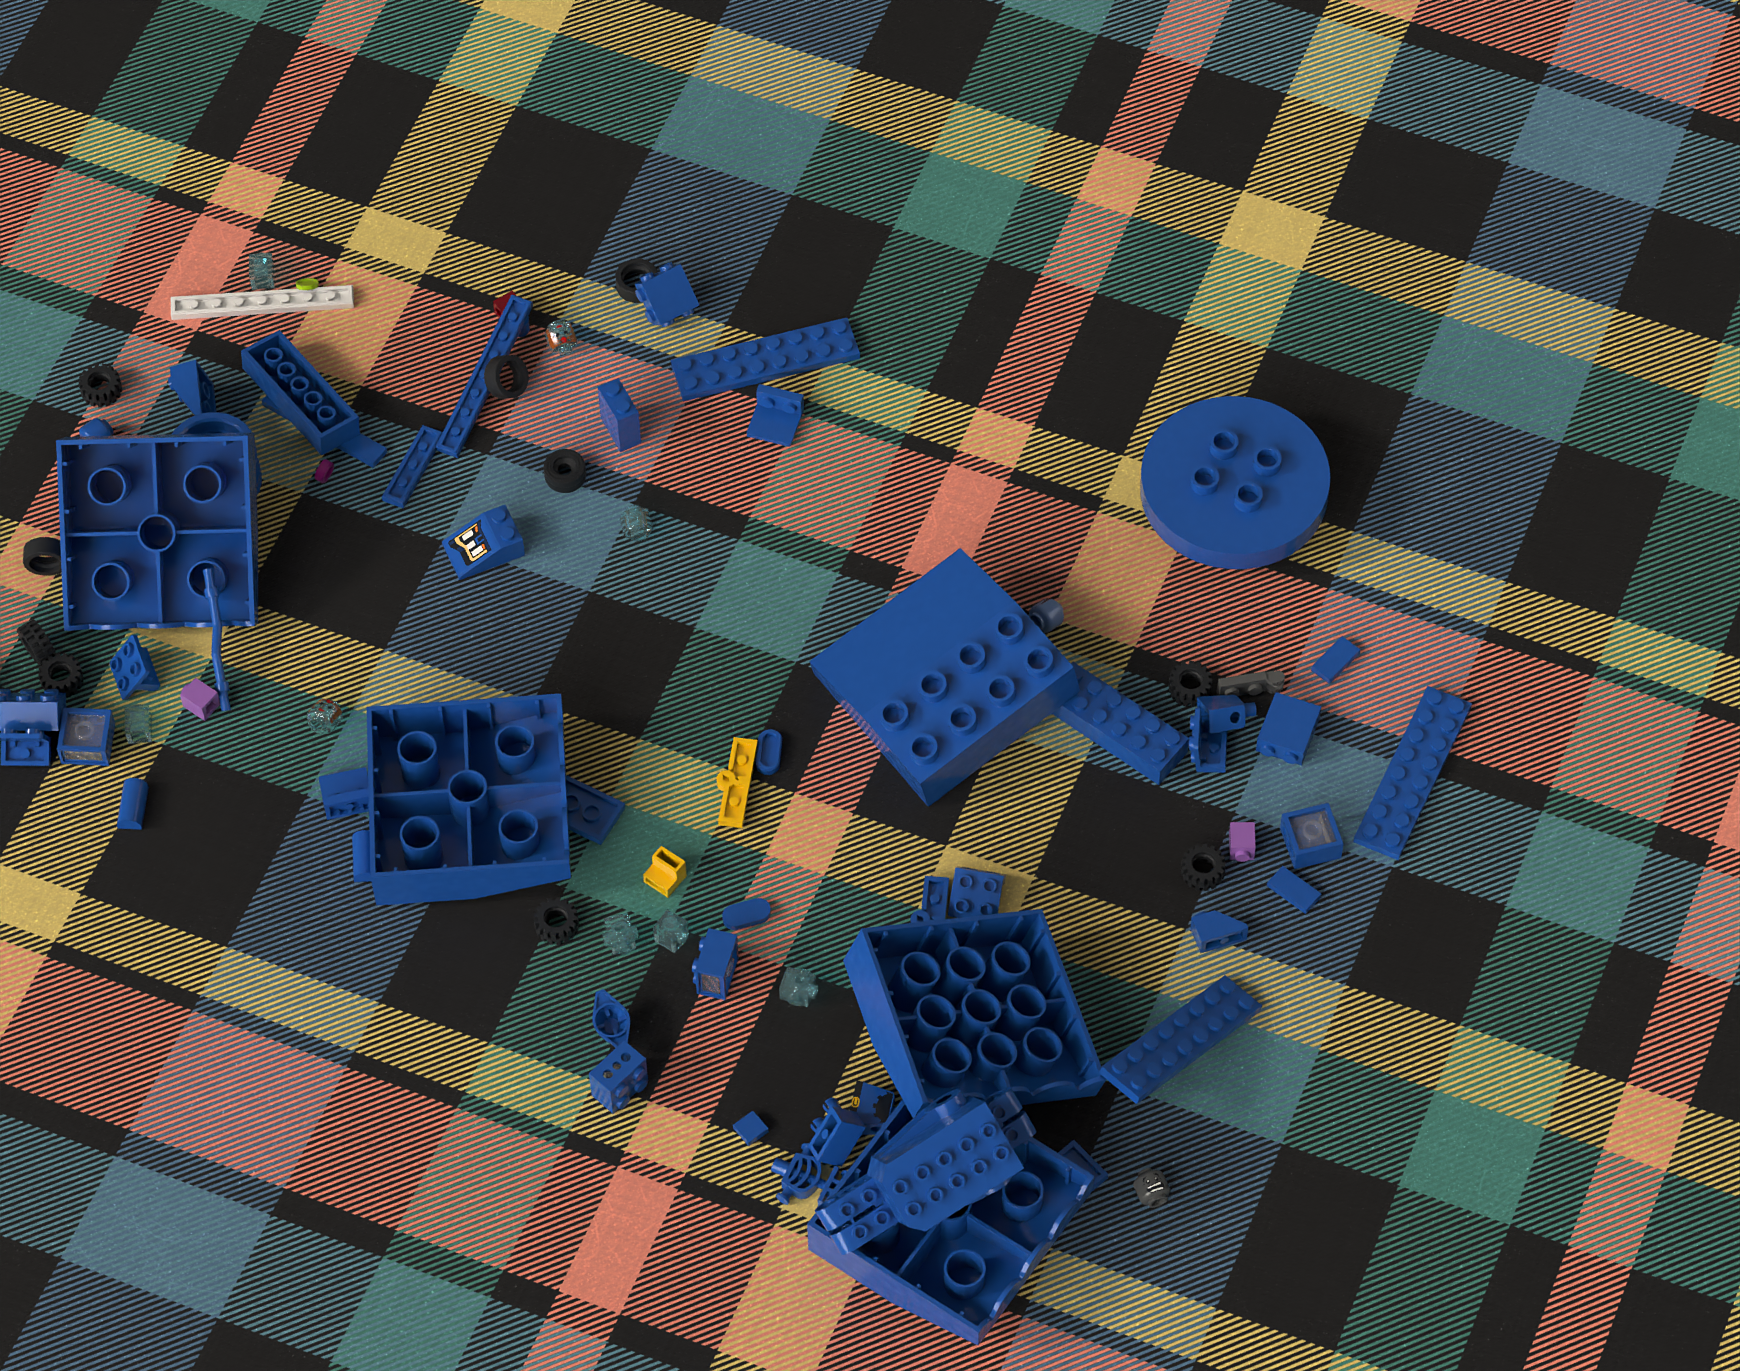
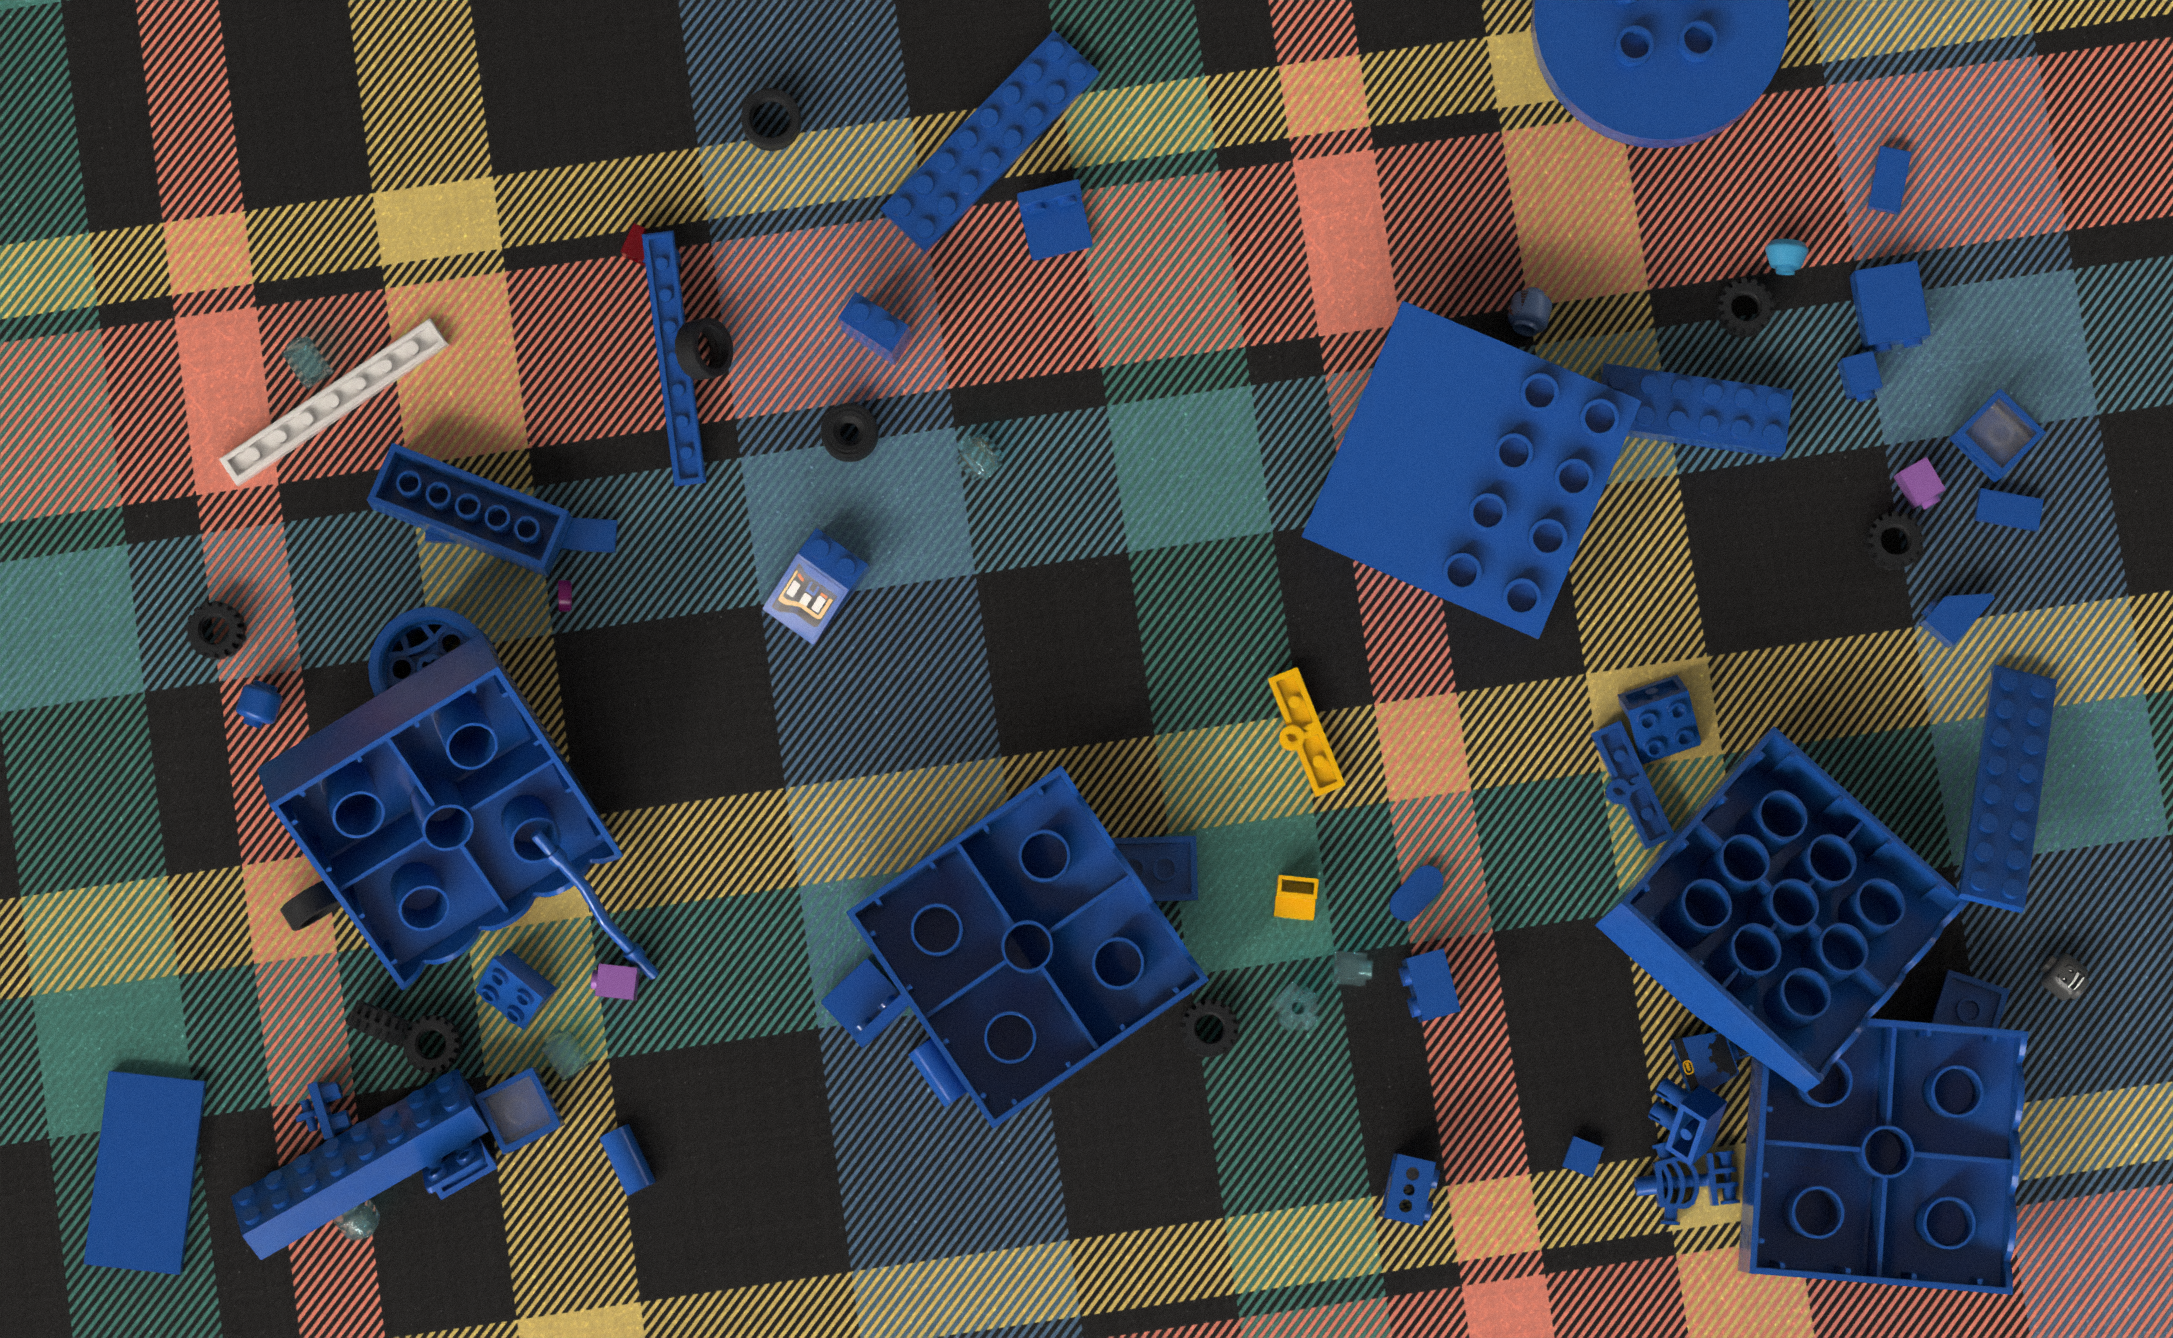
camera: 30 degrees left, 25 degrees up
(193, 387) = (348, 587): blue slope -> none
(307, 284) = (373, 348): lime piece -> none
(324, 716) = (778, 921): clear light blue head -> none
(412, 467) = (663, 526): blue tile -> none
(561, 337) = (730, 252): clear light blue head -> none
(610, 1019) = (1358, 1126): blue hat -> none
(666, 294) = (825, 126): blue brick -> none
(769, 752) = (1315, 669): blue tile -> none
(798, 987) = (1524, 957): clear light blue brick -> none
(931, 1168) = (1873, 1152): blue piece -> none
(1207, 748) = (1816, 380): blue bracket -> none
(1224, 712) = (1809, 331): blue torso -> none
(1237, 664) = (1786, 255): none -> dark azure cone
(1242, 759) = (1860, 376): none -> blue brick
(1251, 683) = (1815, 270): dark grey hinge -> none
(1412, 773) = (2056, 280): blue plate -> none

